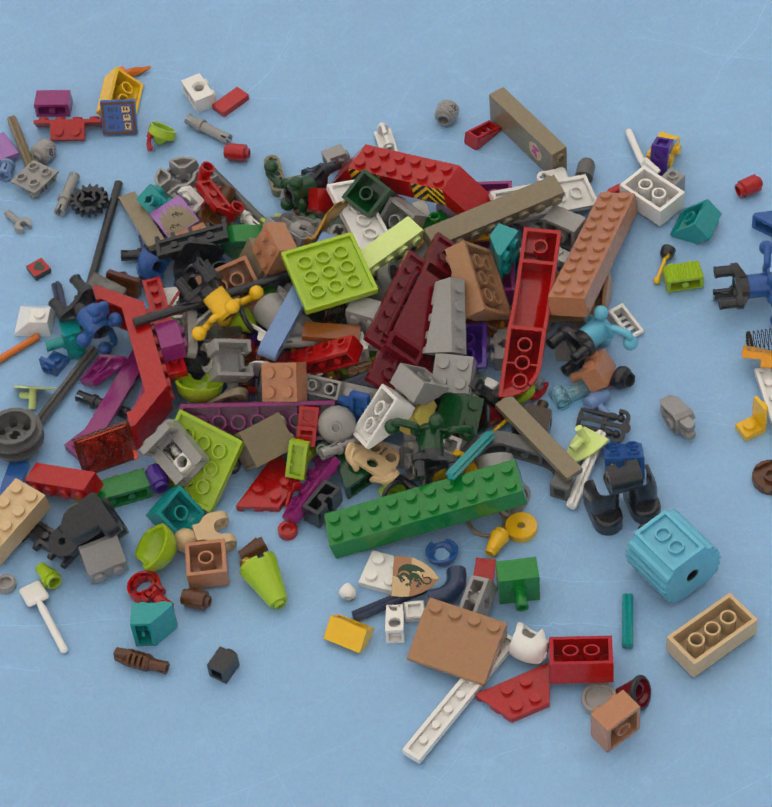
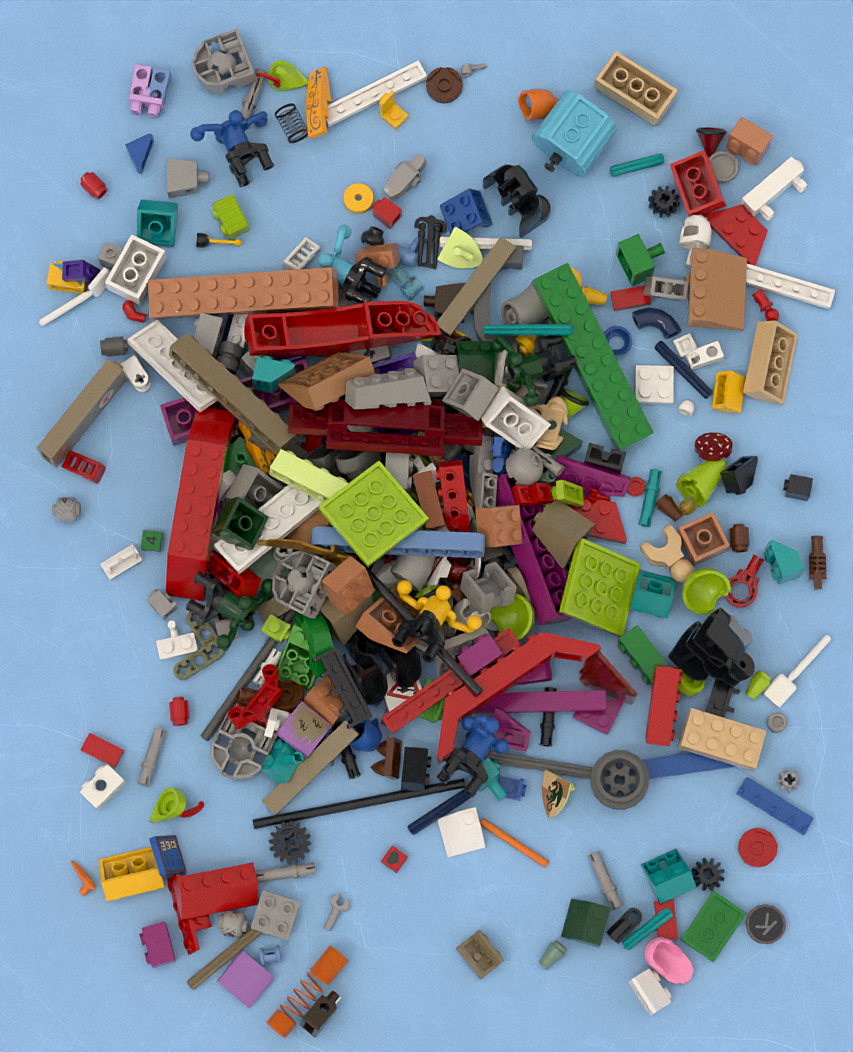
camera: 115 degrees left, 25 degrees up
(74, 139) = (216, 891): none -> red slope
(157, 478) = (628, 618): dark purple brick -> none
(165, 442) = (604, 604): light grey brick -> none
(258, 613) = (739, 475): none -> black slope
(277, 540) = (652, 489): none -> teal pin
(296, 162) = (176, 645): none -> white plate
(296, 598) = (713, 446): none -> dark red tile
(363, 678) = (770, 362): none -> tan slope
(411, 577) = (662, 351): shield -> none
(416, 695) = (770, 313): none -> red pin
(558, 735) = (773, 186): none -> white brick
(576, 626) = (660, 194): none -> black gear
(645, 395) = (386, 212): none -> red brick
(670, 373) = (352, 192): none -> yellow piece
(725, 540) = (541, 101): none -> orange piece
(736, 248) = (184, 177): none -> light grey torso

